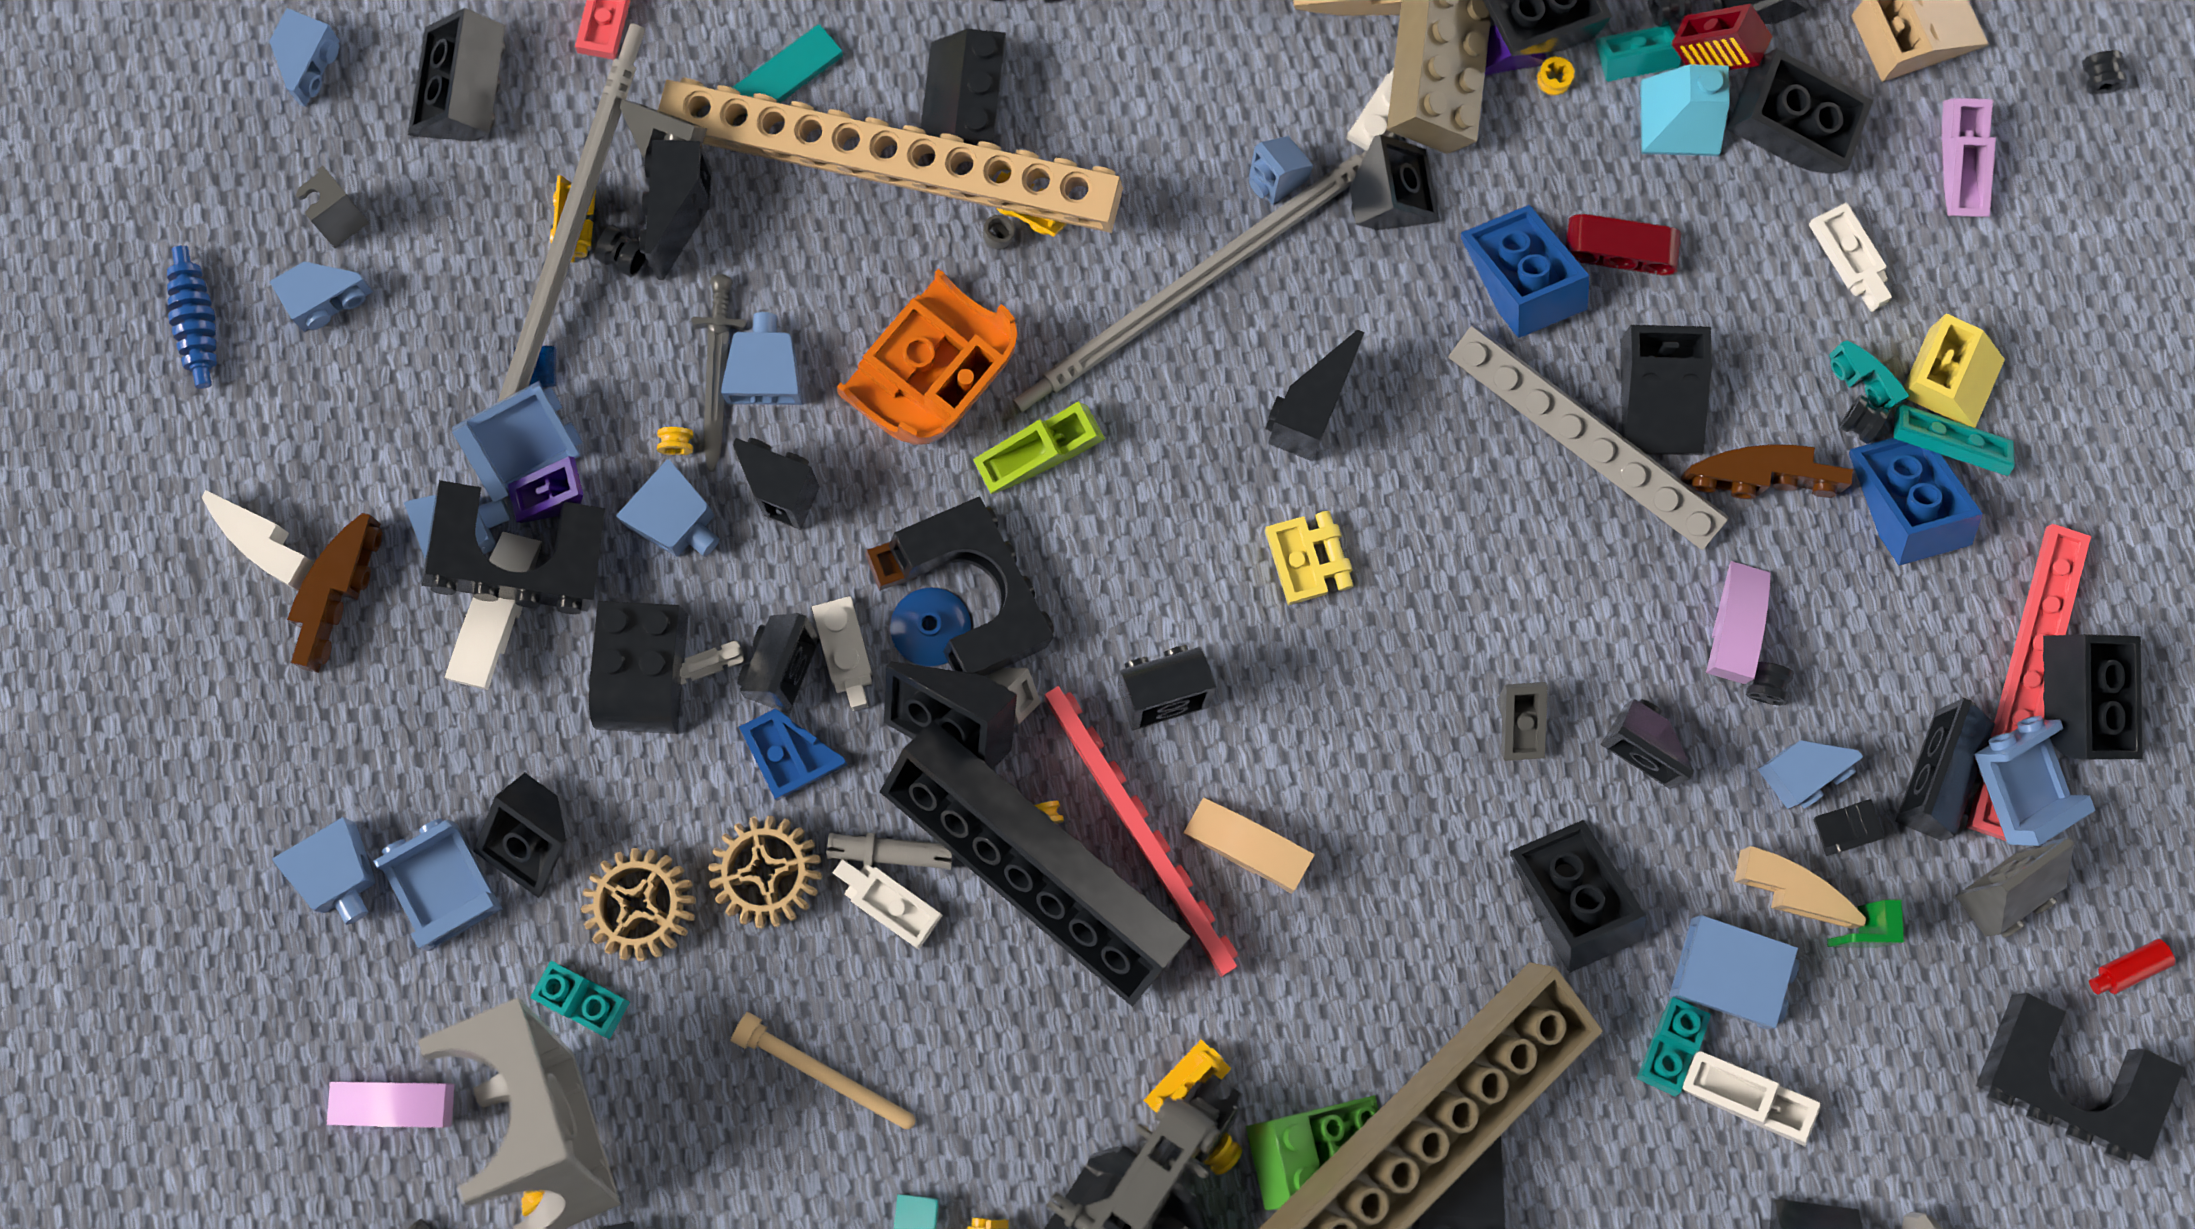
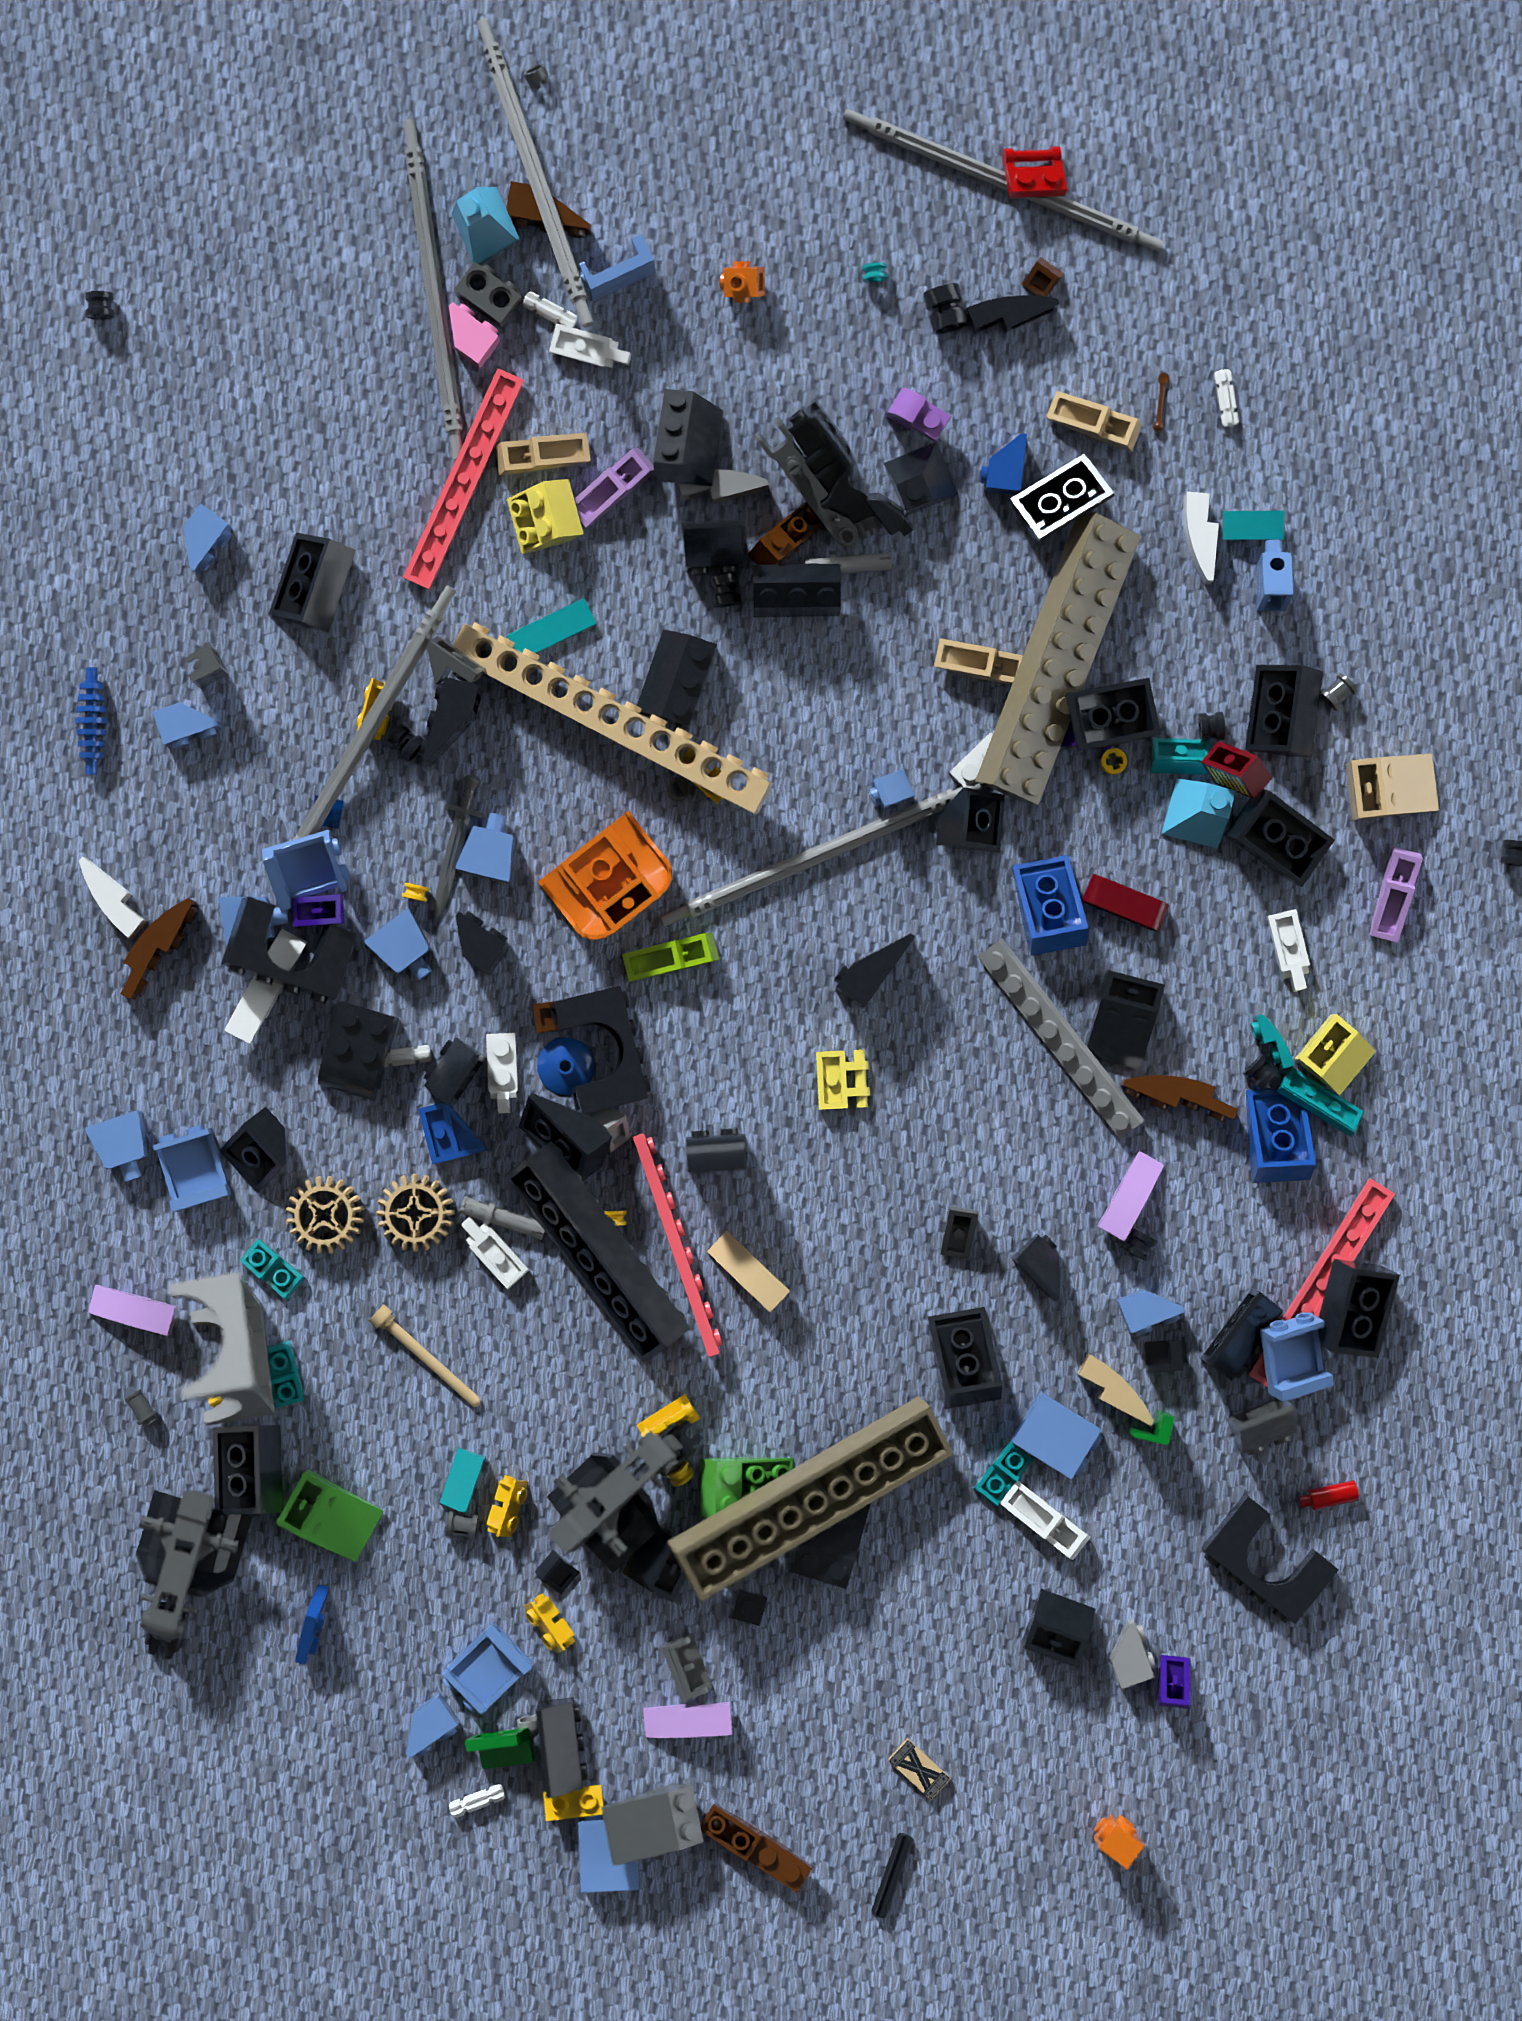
camera: 10 degrees right, 10 degrees up
(626, 1148) = (284, 1374): none -> teal slope

